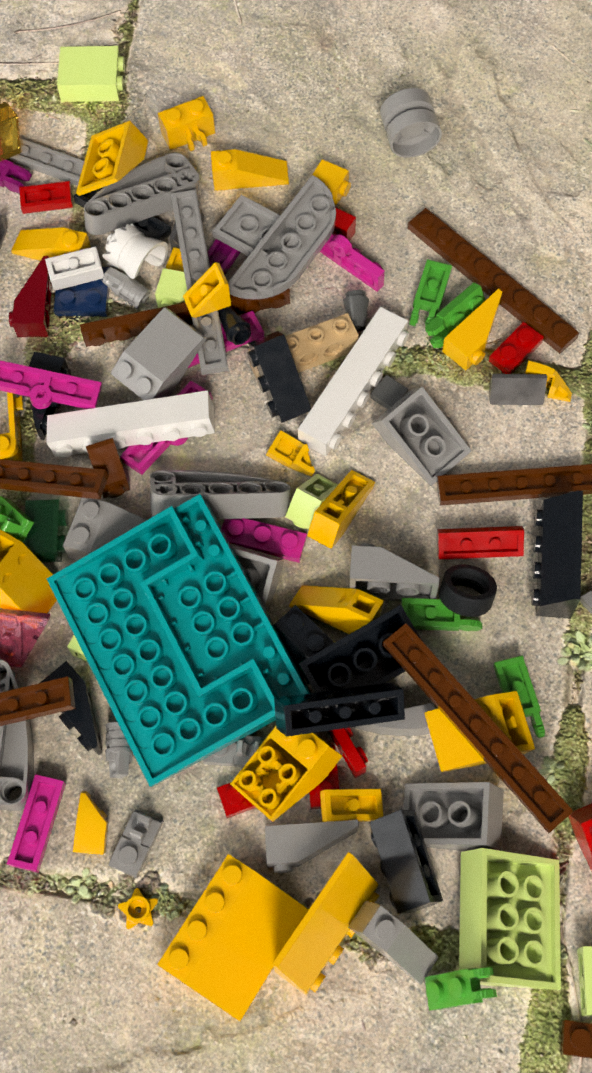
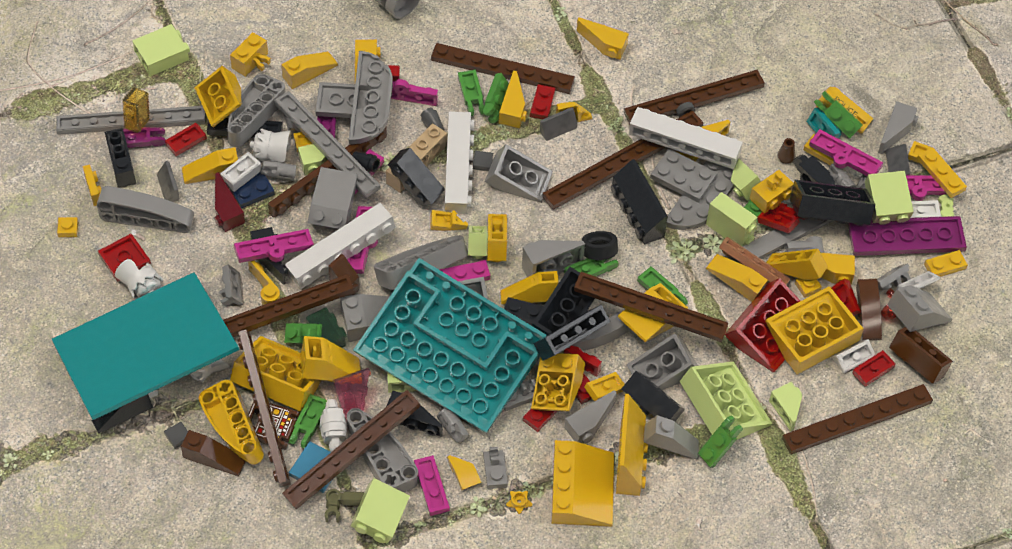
camera: 35 degrees left, 10 degrees down
(208, 293) = (342, 144): yellow slope -> none
(480, 542) = (590, 218): red plate -> none

